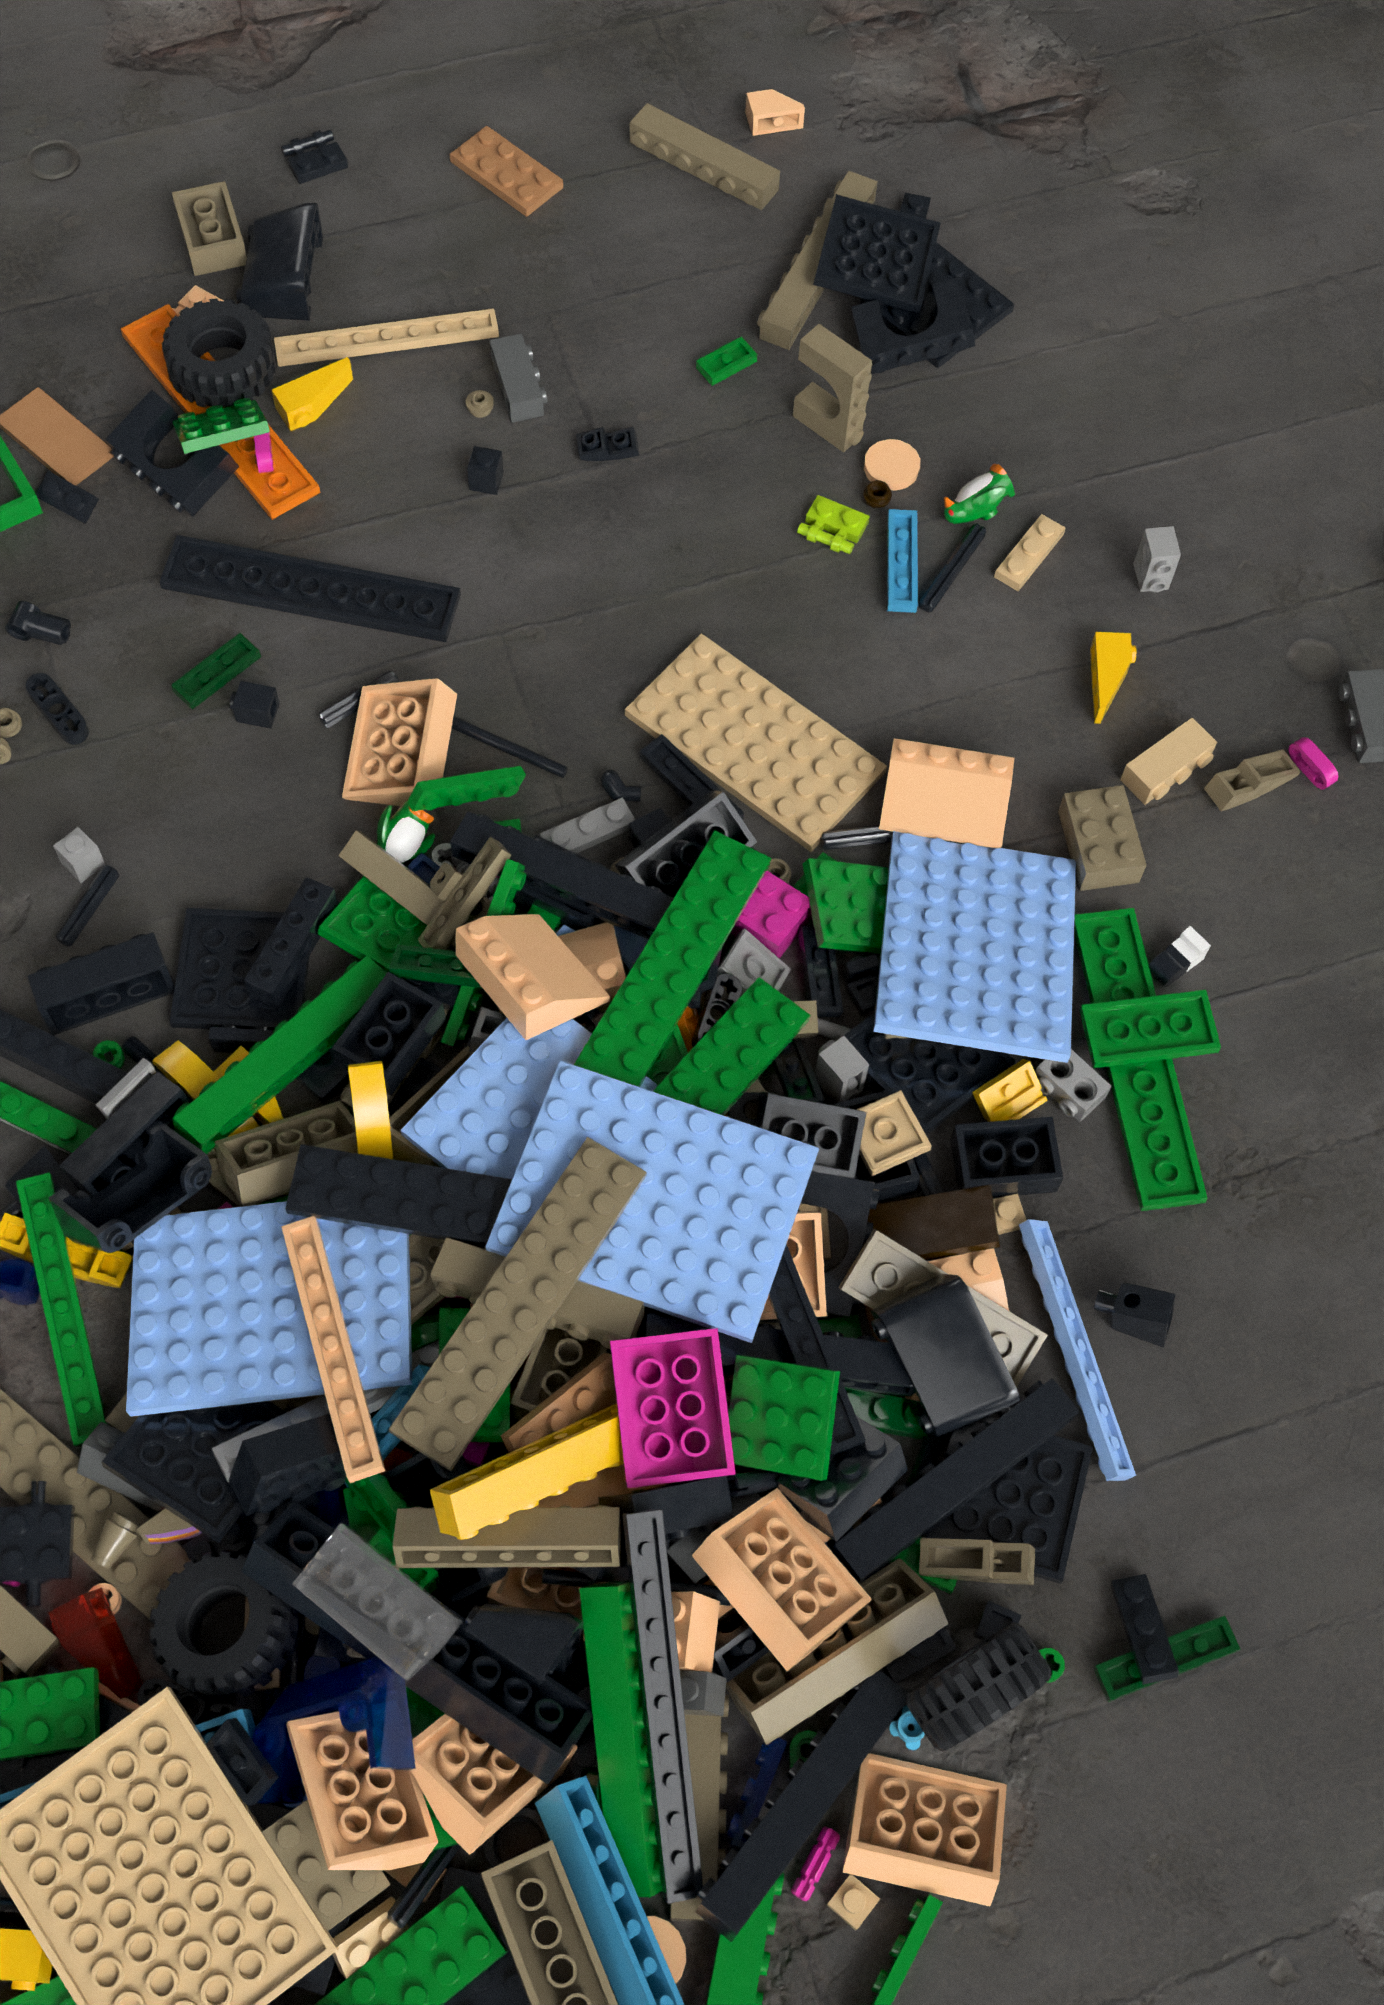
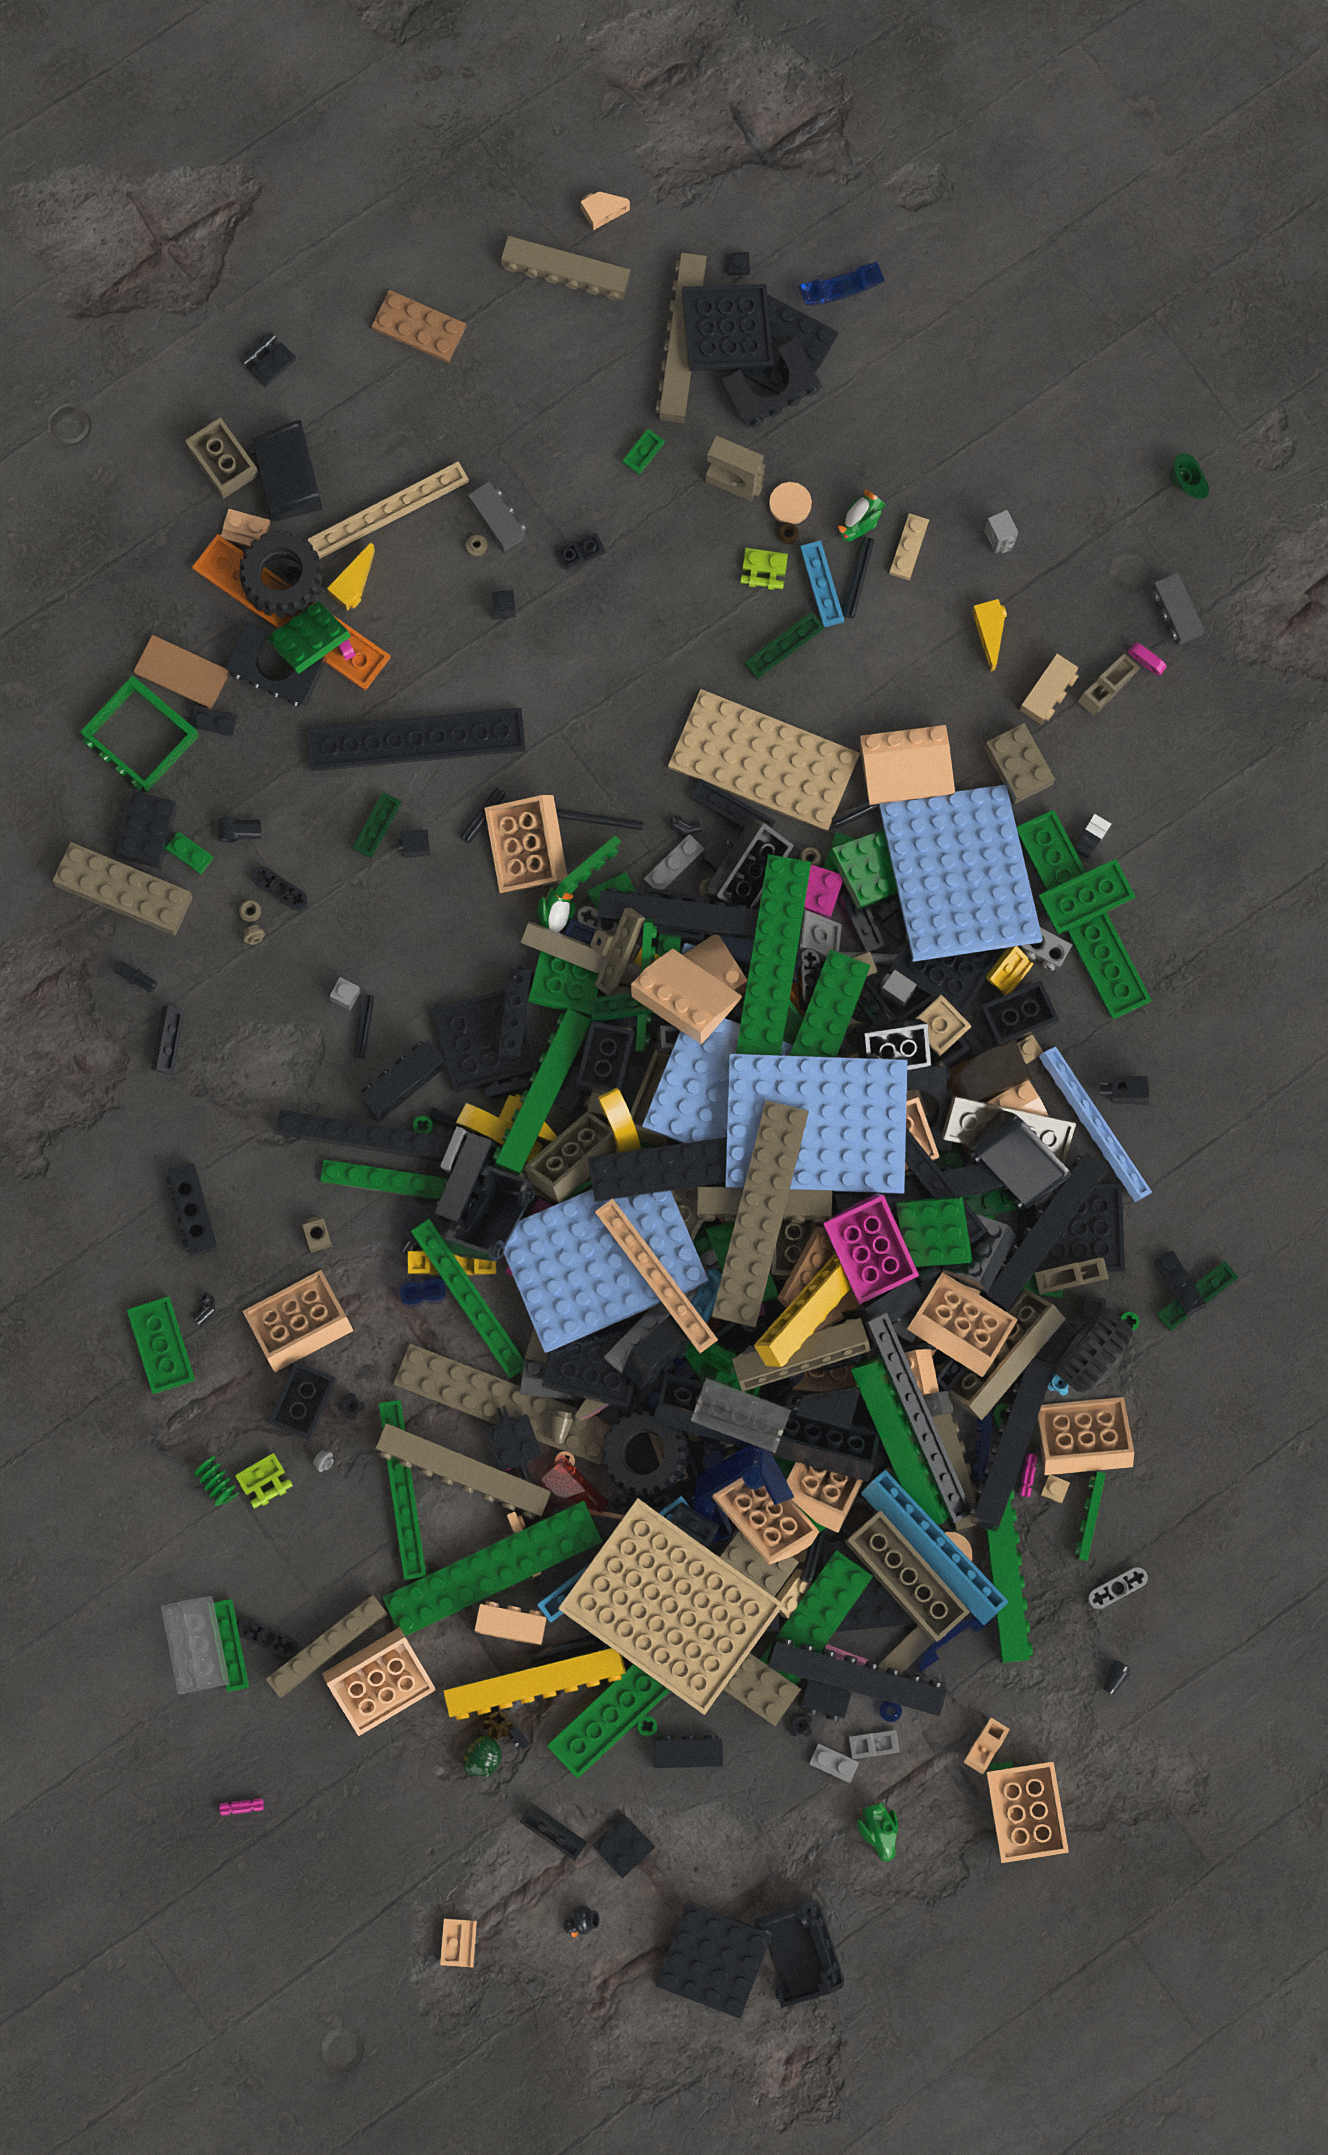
camera: 20 degrees left, 15 degrees up
(829, 615) = (784, 646): none -> dark green plate
(1034, 262) = (842, 286): none -> clear blue slope

